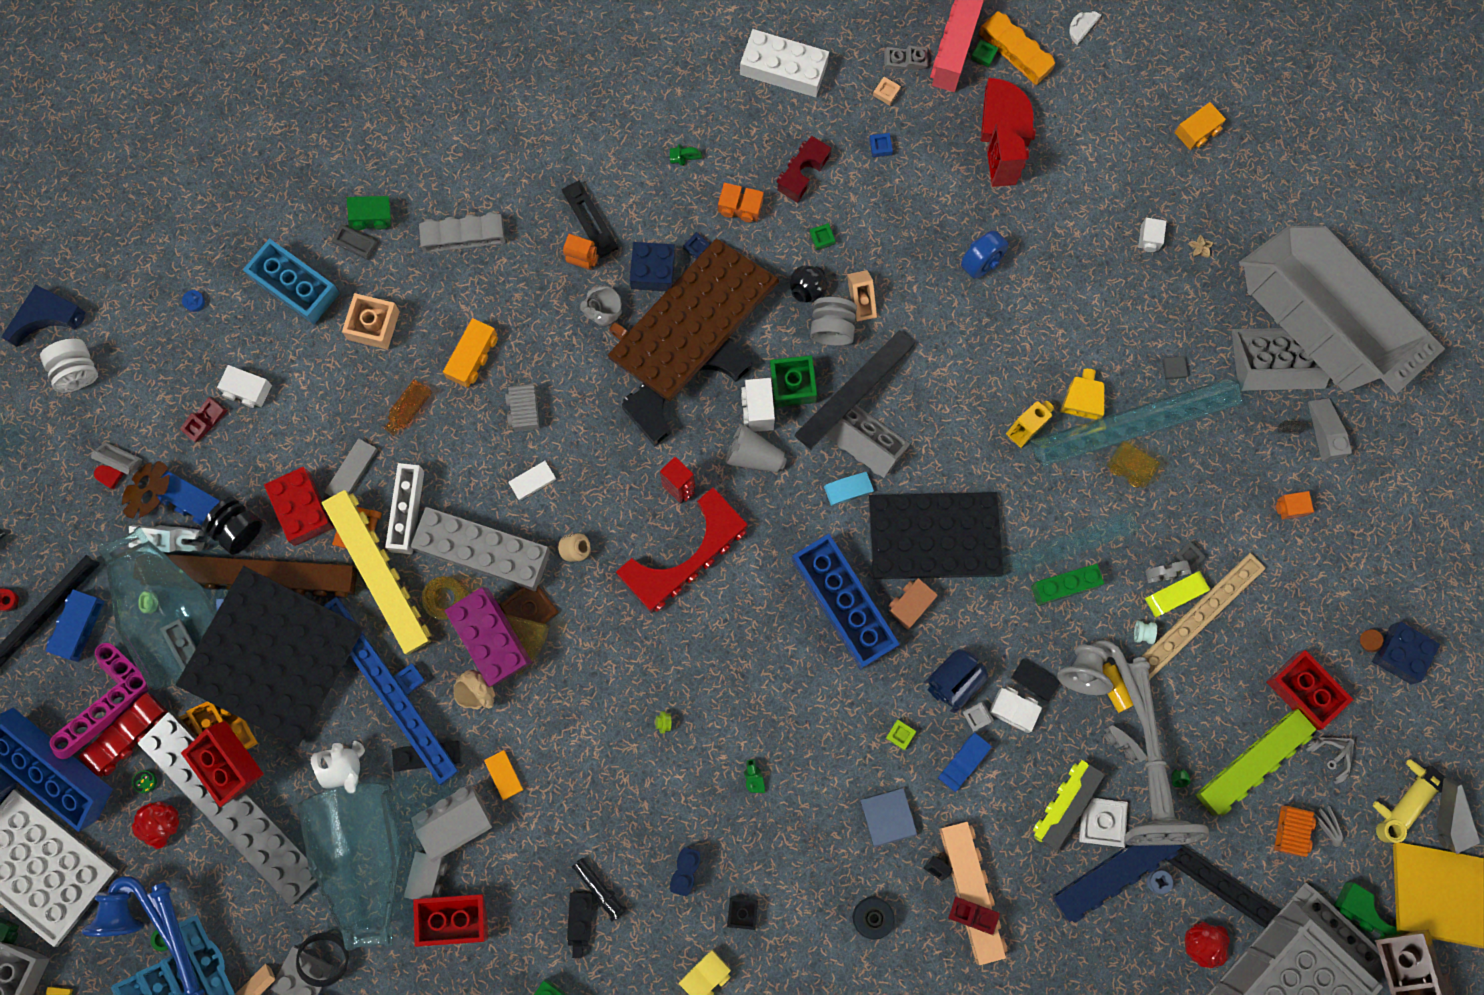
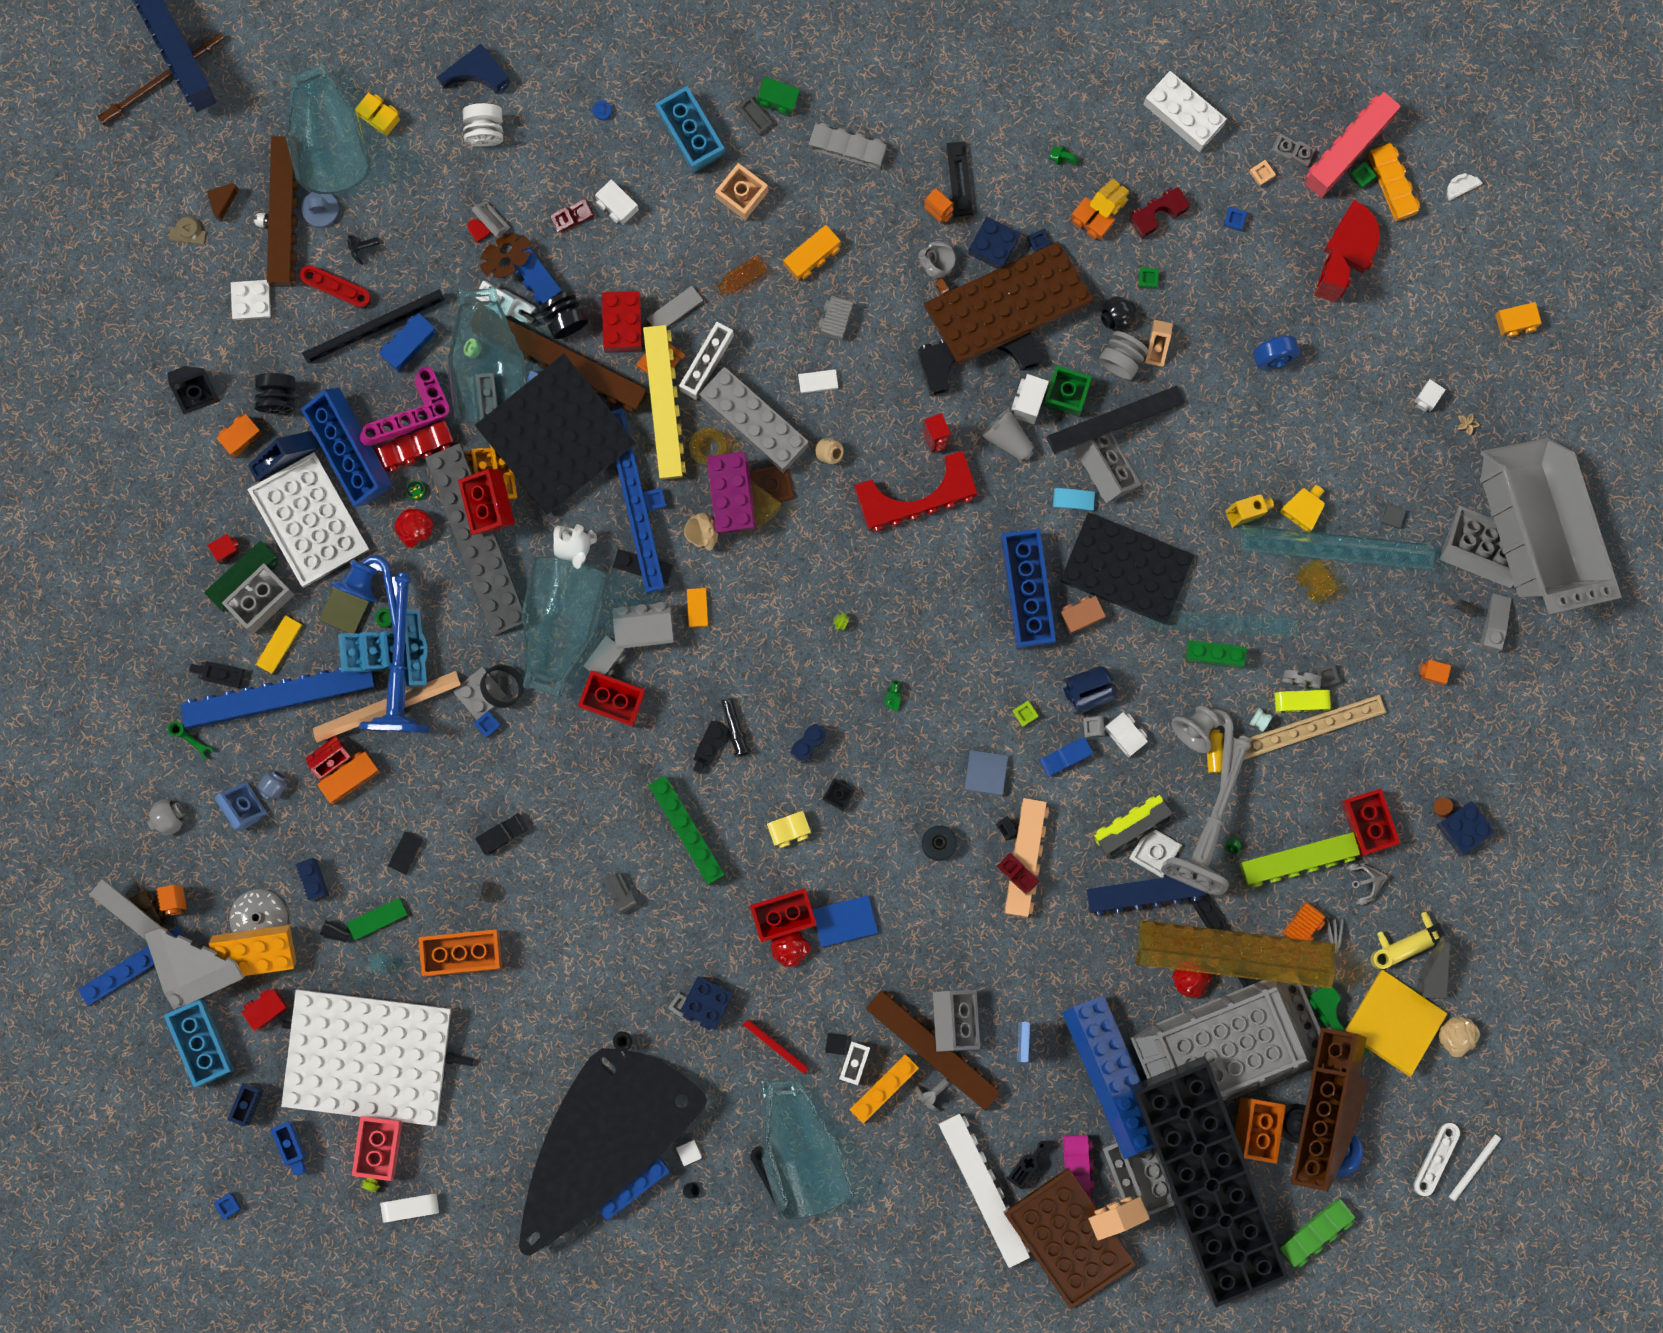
camera: 25 degrees right, 5 degrees up
(114, 955) = (344, 611): none -> olive tile
(749, 174) = (1110, 198): none -> yellow brick
(1035, 680) = (1153, 719): black tile -> none
(1119, 738) = (1199, 793): light grey slope -> none
(1154, 881) = (1175, 918): sand blue wheel -> none
(1244, 898) = (1235, 954): none -> clear yellow brick

